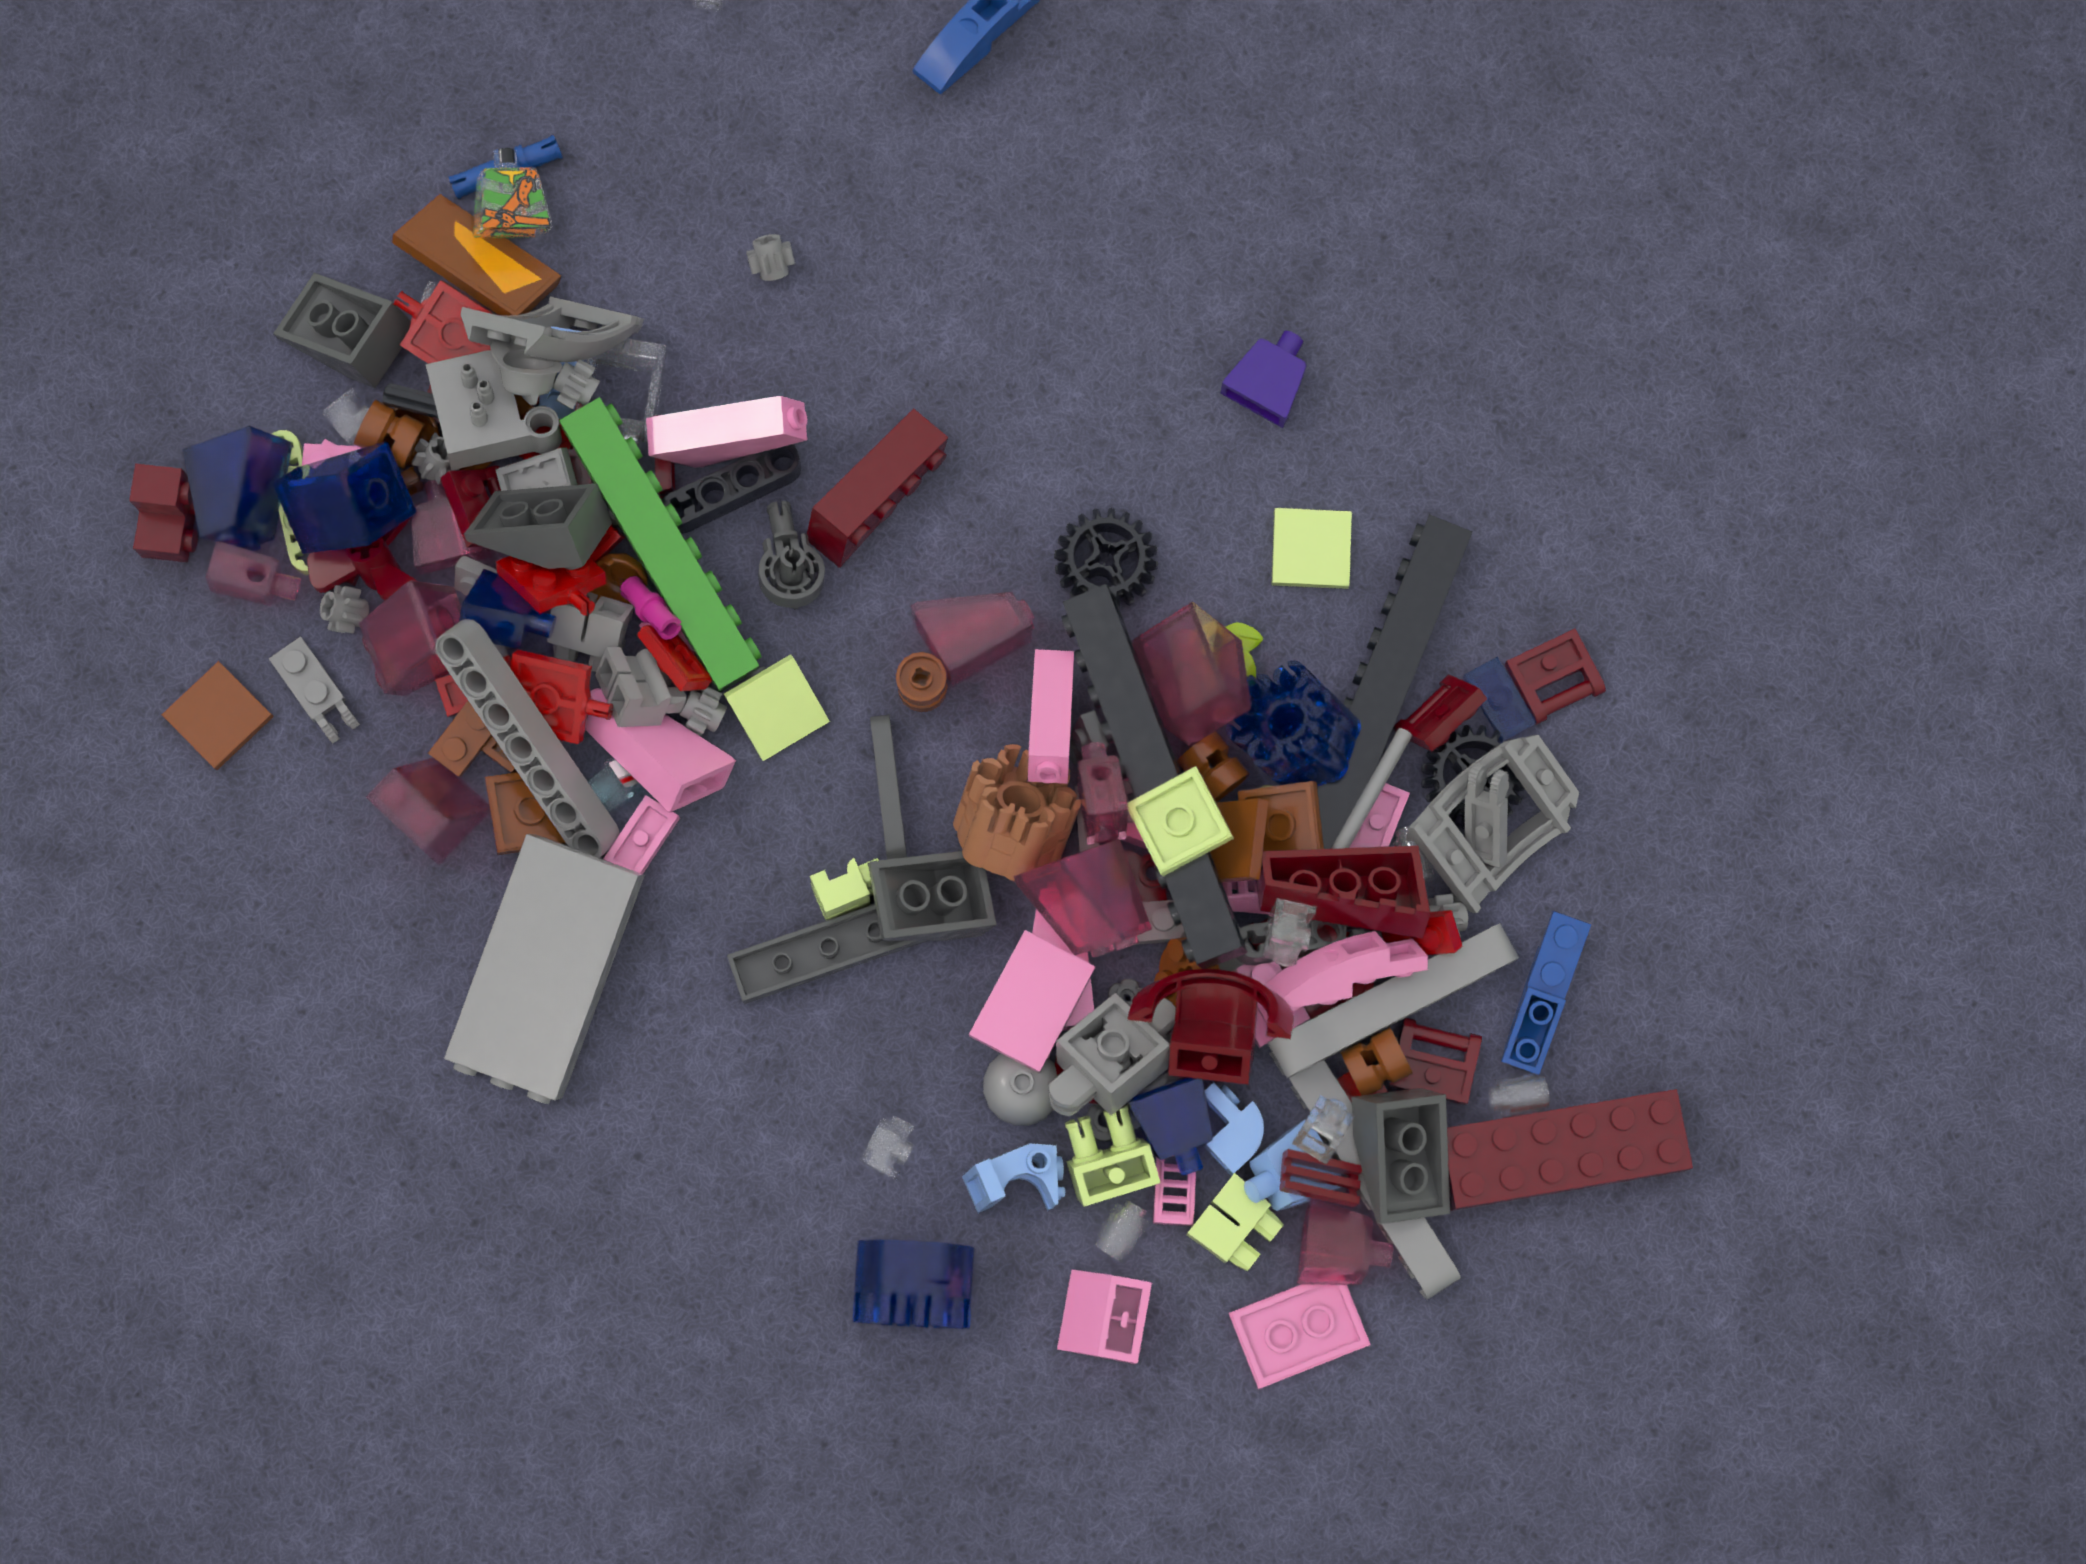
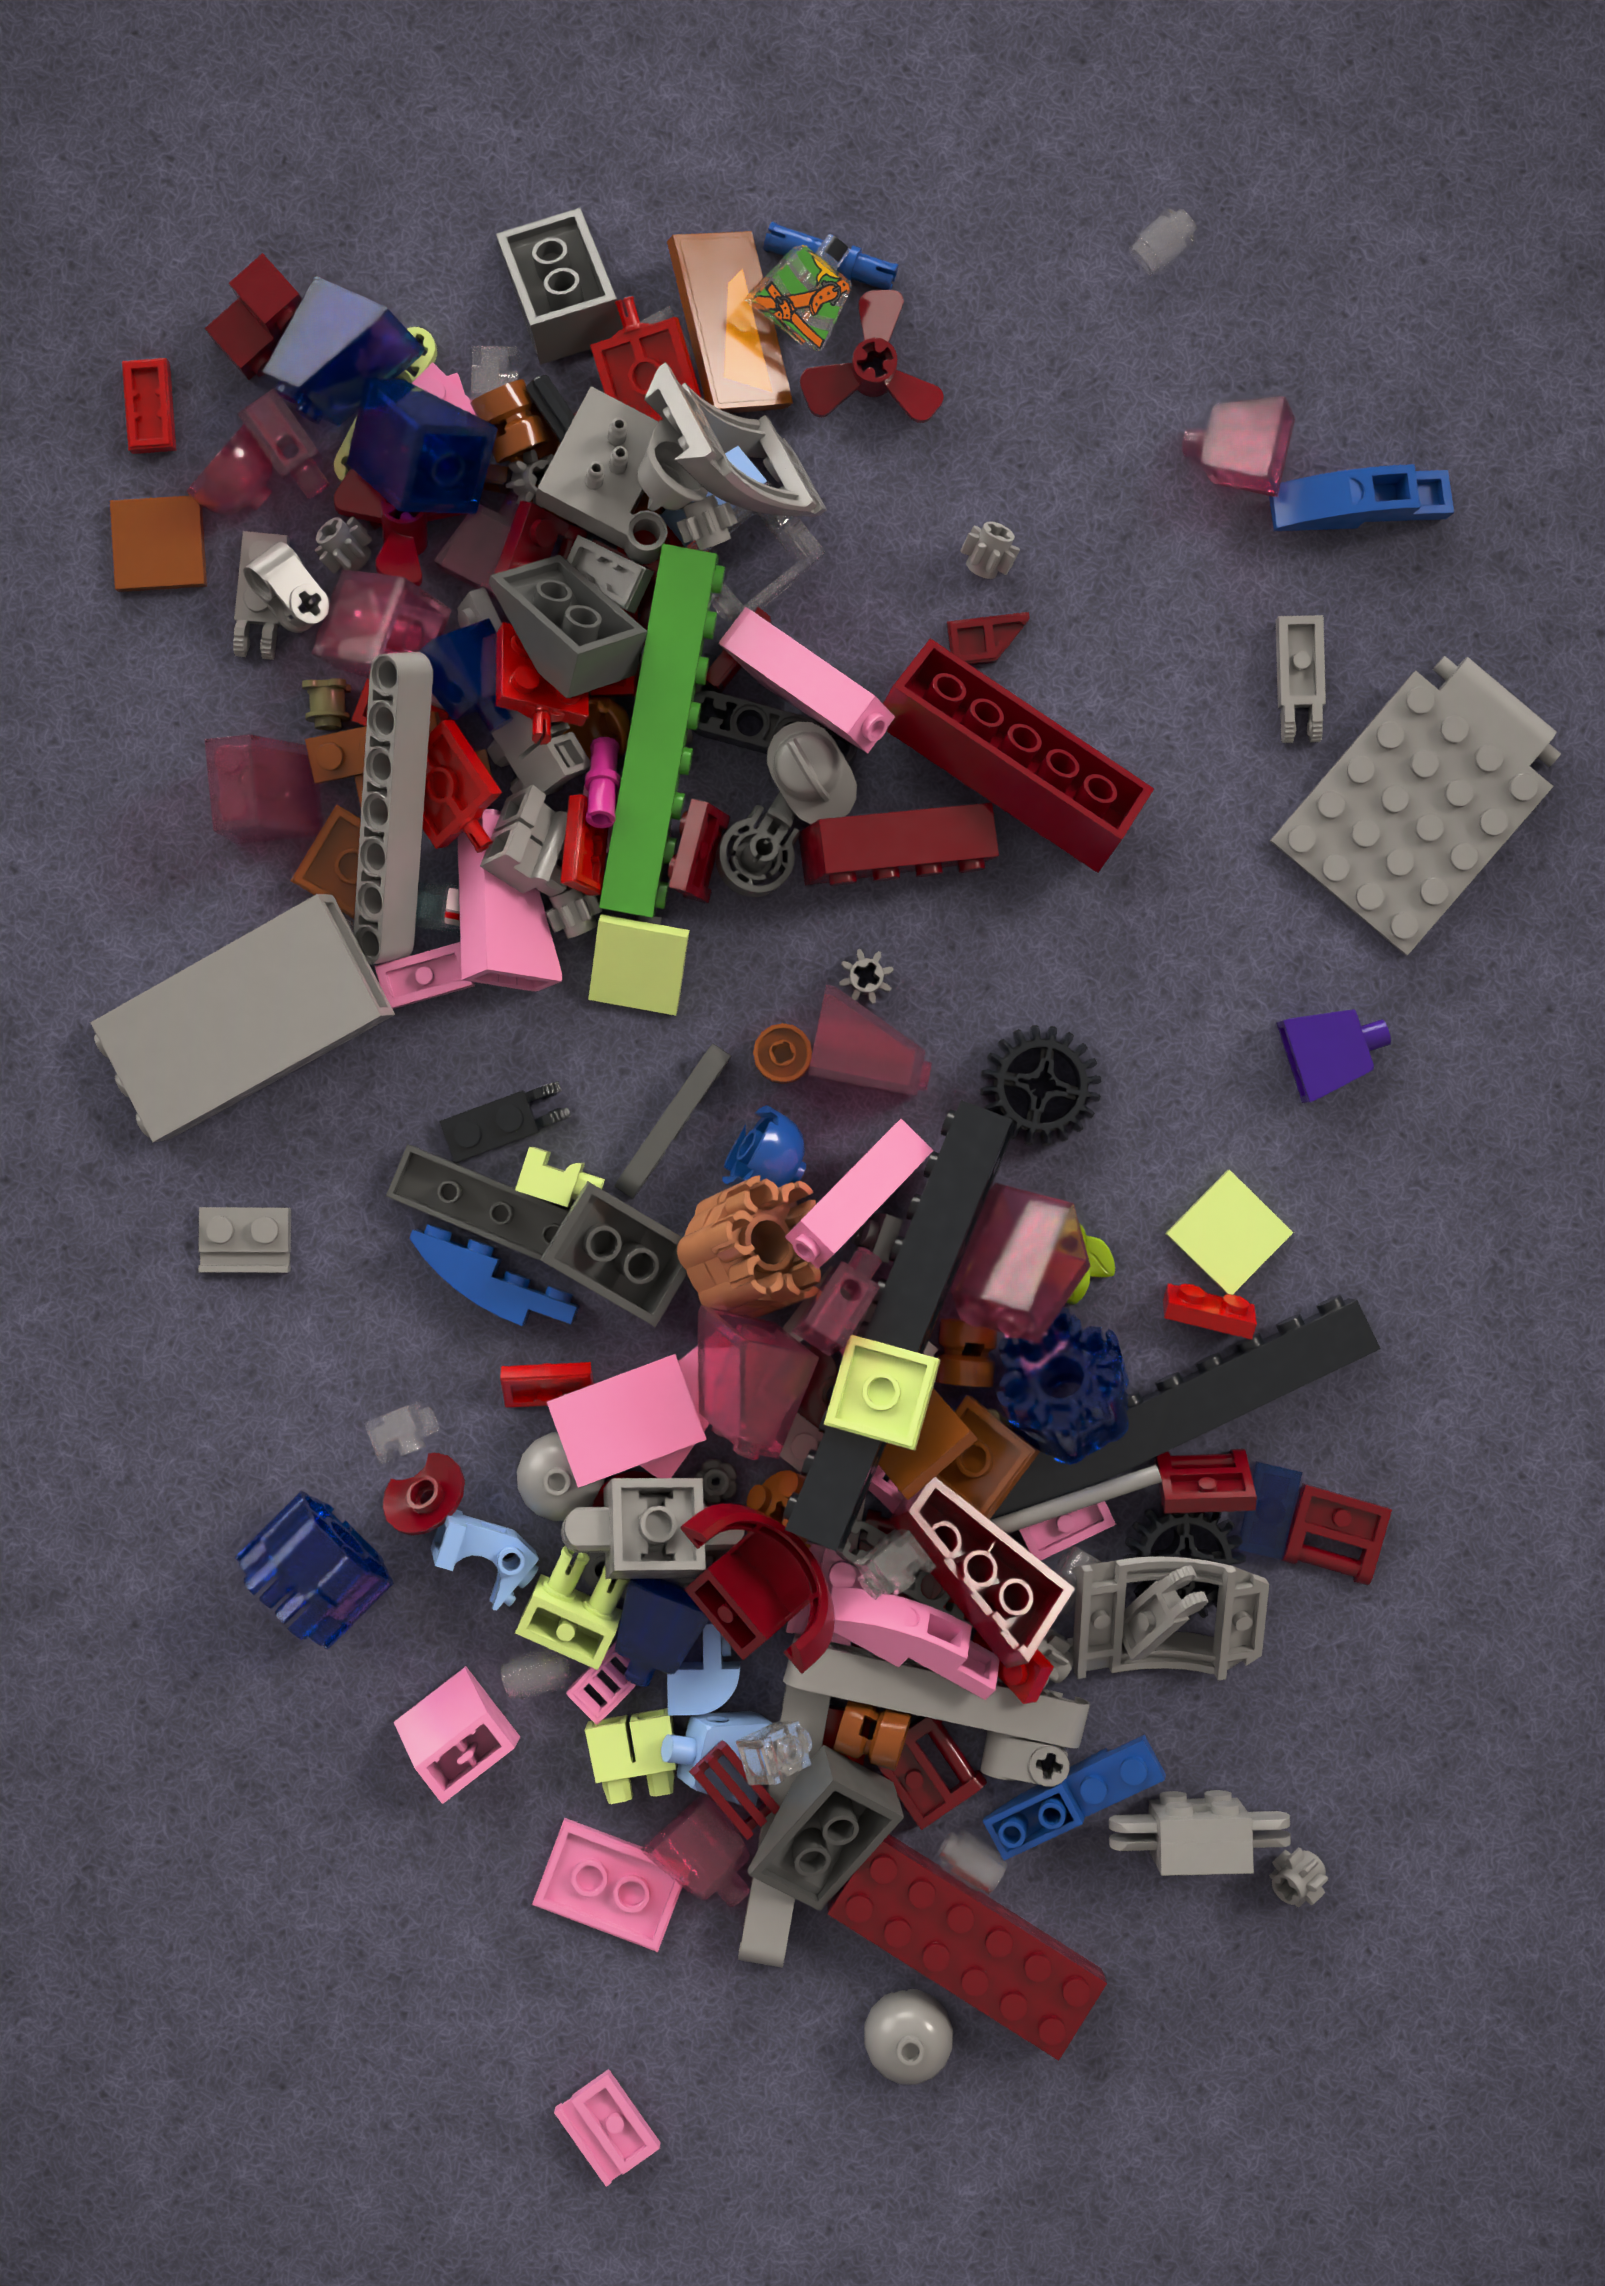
camera: 40 degrees right, 10 degrees up
(135, 632) = (149, 405): none -> red plate
(233, 625) = (234, 477): none -> clear pink cylinder
(330, 666) = (285, 584): none -> light grey piece
(421, 719) = (327, 703): none -> olive brick
(576, 243) = (832, 384): none -> dark red piece
(672, 1117) = (244, 1239): none -> light grey plate
(755, 612) = (694, 862): none -> dark red plate
(775, 891) = (499, 1122): none -> black hinge
(779, 488) = (811, 772): none -> light grey piece
(814, 317) = (984, 638): none -> dark red tile
(844, 1002) = (474, 1272): none -> blue slope
(873, 58) = (1244, 444): none -> clear pink torso
(902, 366) = (1014, 755): none -> dark red brick
(931, 576) = (870, 988): none -> light grey gear
(945, 1177) = (408, 1502): none -> dark red dish
(951, 1037) = (542, 1382): none -> red plate
(964, 744) = (768, 1151): none -> blue cylinder
(1037, 167) = (1300, 673): none -> light grey hinge
(1184, 179) = (1422, 800): none -> light grey plate
(1331, 611) = (1222, 1314): none -> red plate
(1444, 1493) = (607, 2127): none -> bright pink plate
(1485, 999) = (1019, 1759): none -> light grey piece
(1585, 1250) = (908, 2036): none -> light grey cylinder
(1653, 935) = (1200, 1833): none -> light grey brick
(1736, 914) = (1298, 1877): none -> light grey gear

